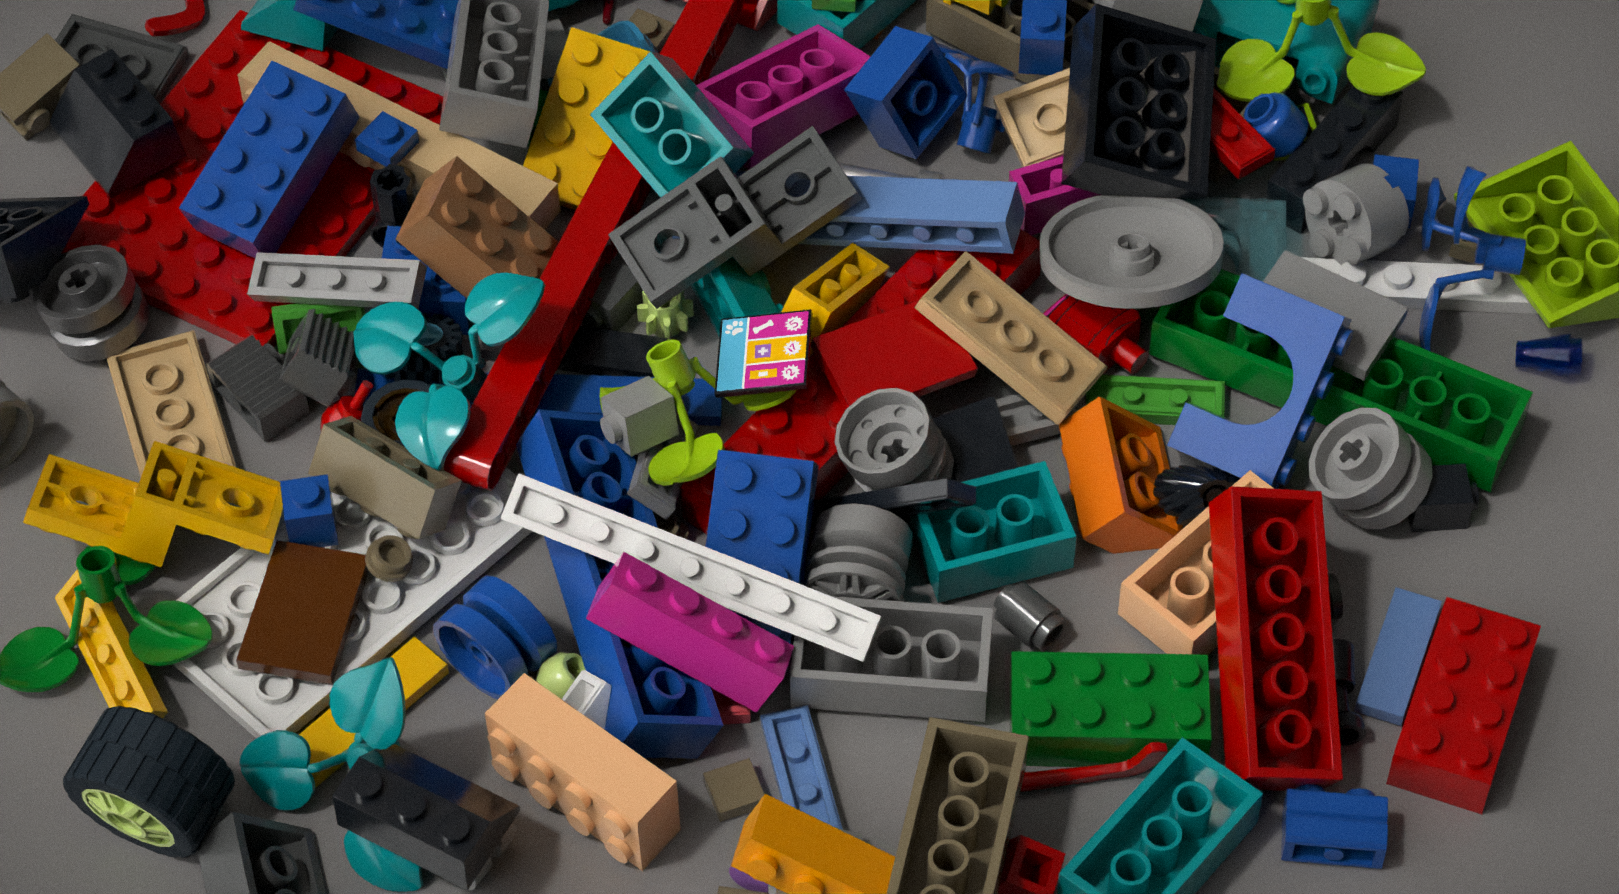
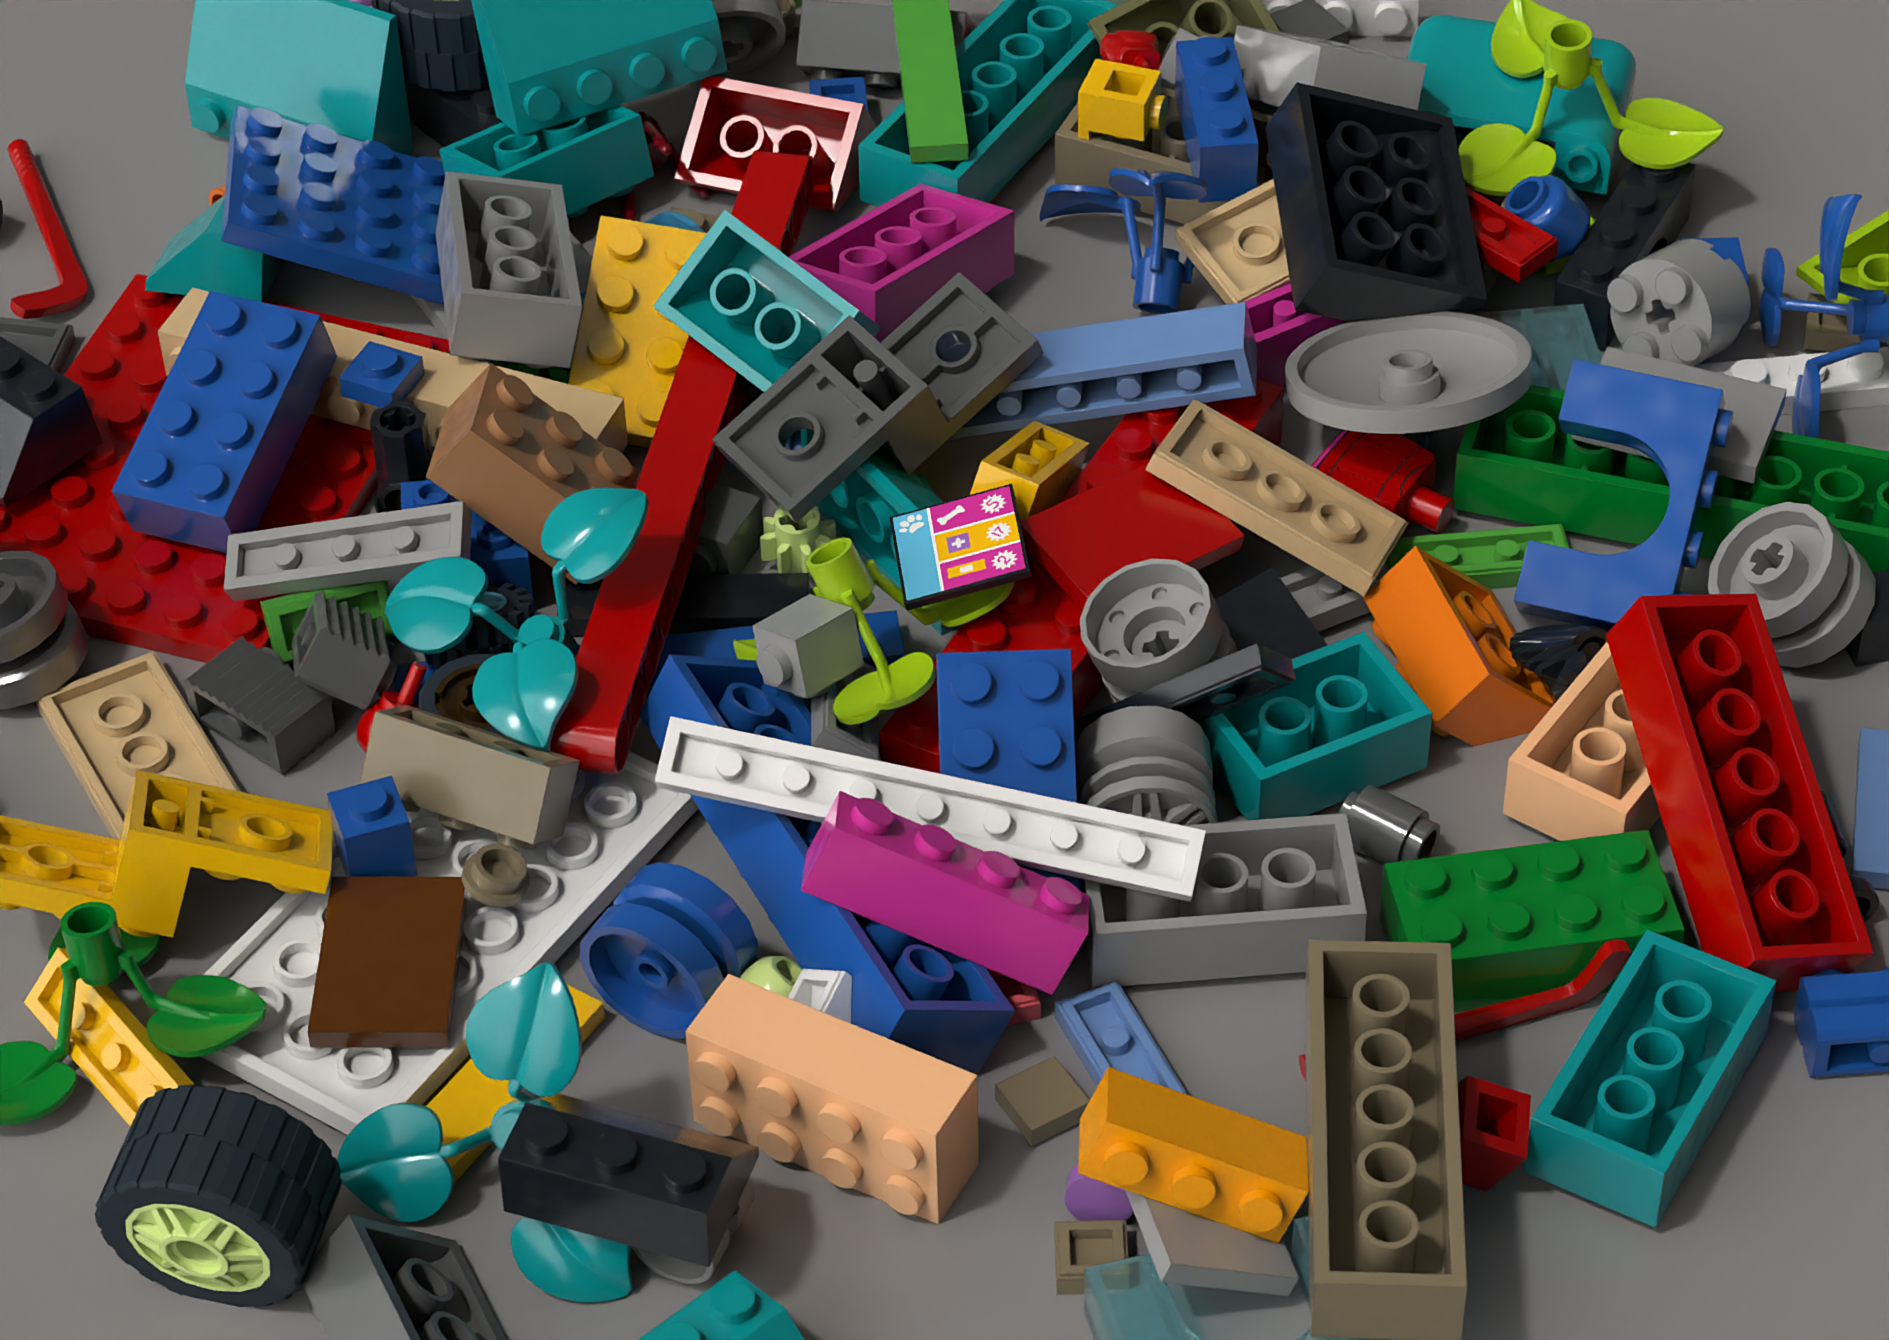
camera: 10 degrees left, 10 degrees down
(905, 92) = (1057, 243): blue brick -> none

